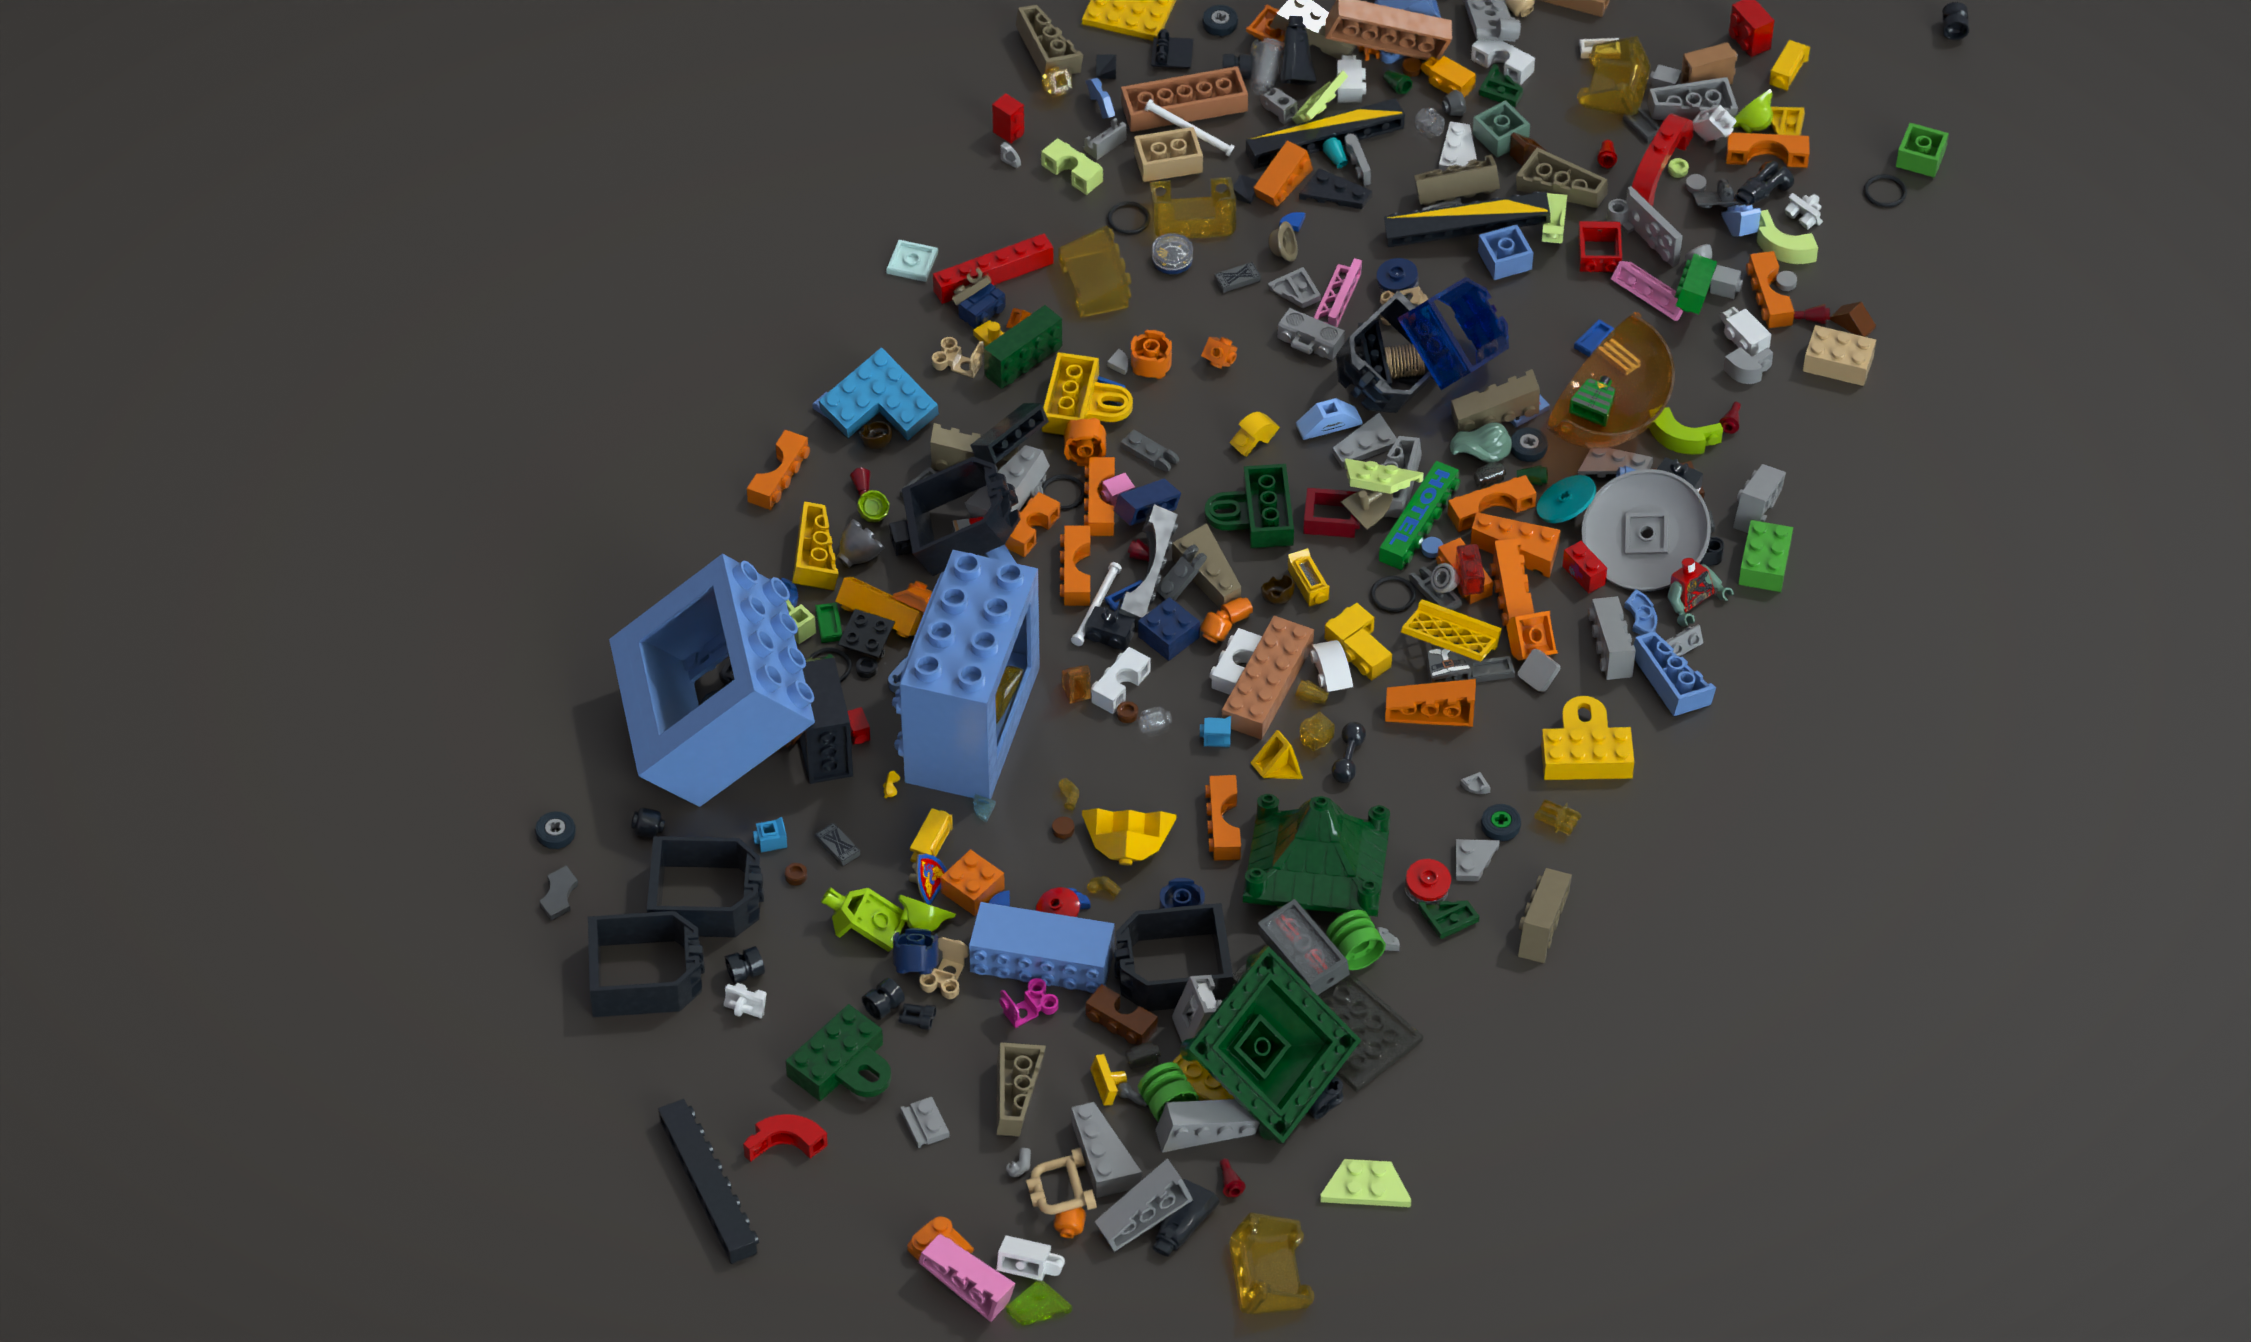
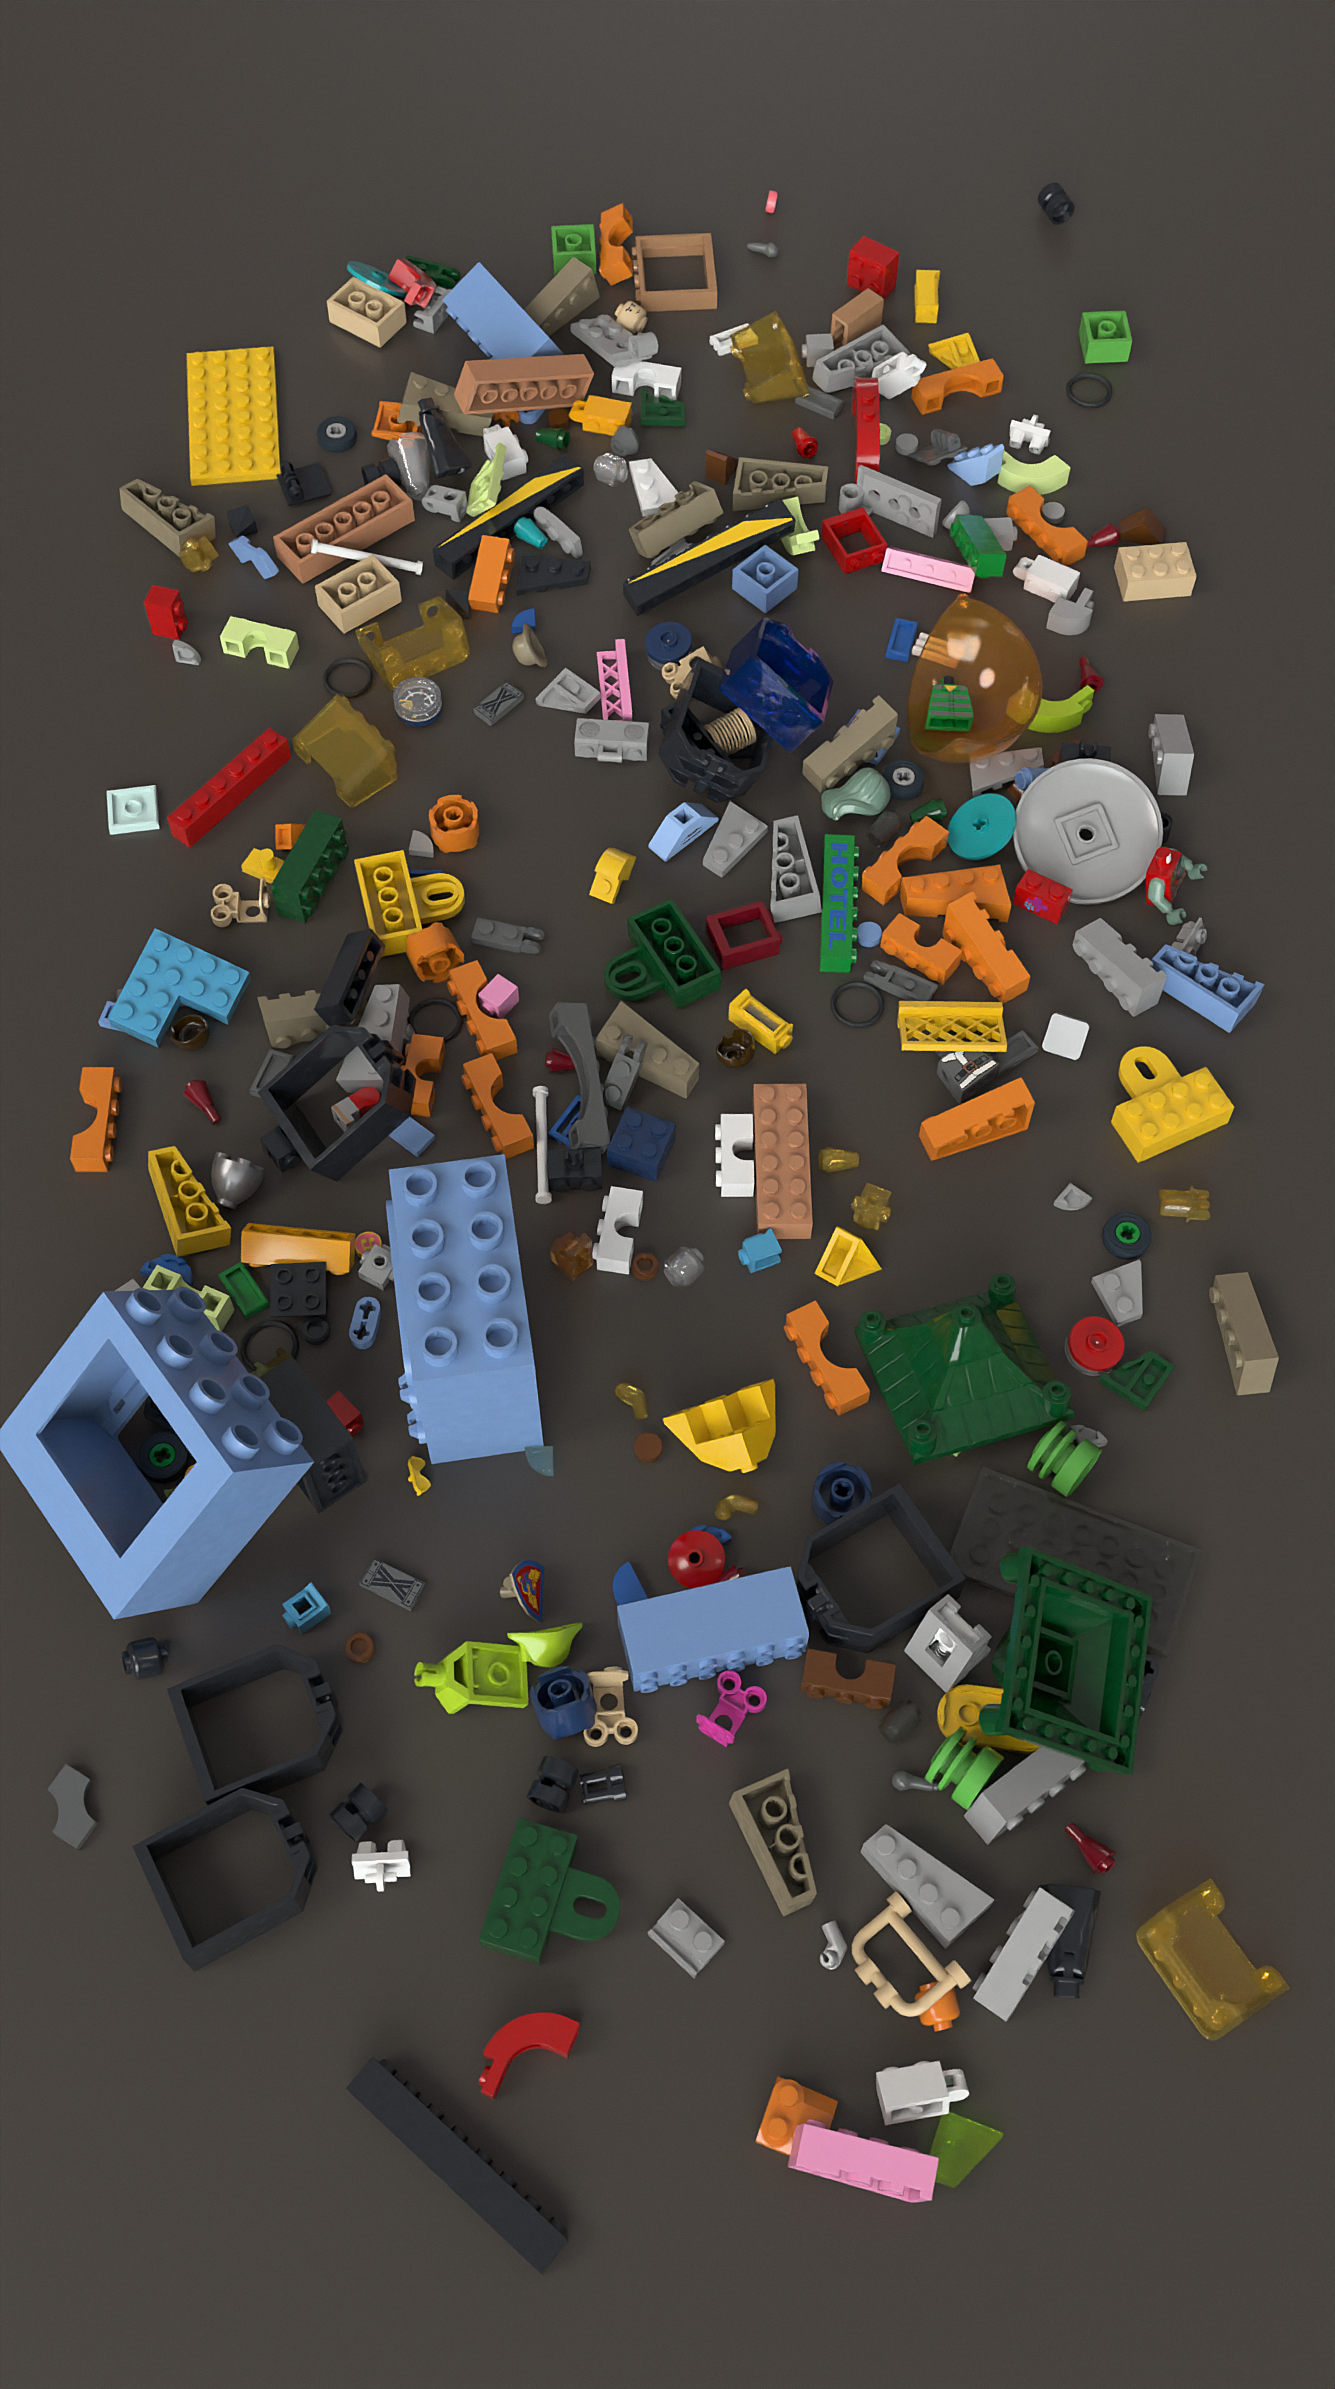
camera: 25 degrees left, 10 degrees up
(555, 839) = (36, 1730): black bush -> none
(873, 506) = (229, 1123): lime hair -> none
(915, 596) = (344, 1219): orange slope -> none
(932, 834) = (502, 1529): yellow window -> none
(963, 292) = (211, 827): dark tan plate -> none
(972, 882) = (581, 1571): orange brick -> none
(982, 306) = (238, 834): dark blue brick -> none
(1106, 141) = (282, 601): light grey hinge -> none
(1106, 1080) = (876, 1776): yellow tile -> none
(1136, 503) = (538, 998): dark blue brick -> none
(1216, 626) = (693, 1121): orange head -> none
(1220, 352) = (519, 795): orange brick -> none
(1237, 609) = (702, 1092): orange brick -> none
(1304, 947) = (1016, 1498): brick -> none
(1332, 665) = (844, 1118): white brick -> none
(1348, 623) = (835, 1064): yellow brick -> none
(1353, 735) = (925, 1241): black piece -> none
(1366, 1184) = (1247, 1780): yellowish green wing -> none
(1367, 654) = (872, 1088): yellow brick -> none
(1368, 506) = (785, 912): dark tan shield -> none
(1379, 477) = (782, 877): yellowish green wing -> none
(1444, 578) = (911, 967): light grey brick -> none
(1470, 569) = (937, 947): clear red brick -> none
(1496, 126) = (685, 451): sand green brick -> none
(1531, 633) = (1035, 999): orange slope -> none
(1643, 613) = (1128, 926): medium blue tile -> none
(1756, 189) = (976, 429): black piece -> none
(1757, 114) = (930, 351): lime hat -> none
(1765, 555) = (1215, 814): bright green brick -> none

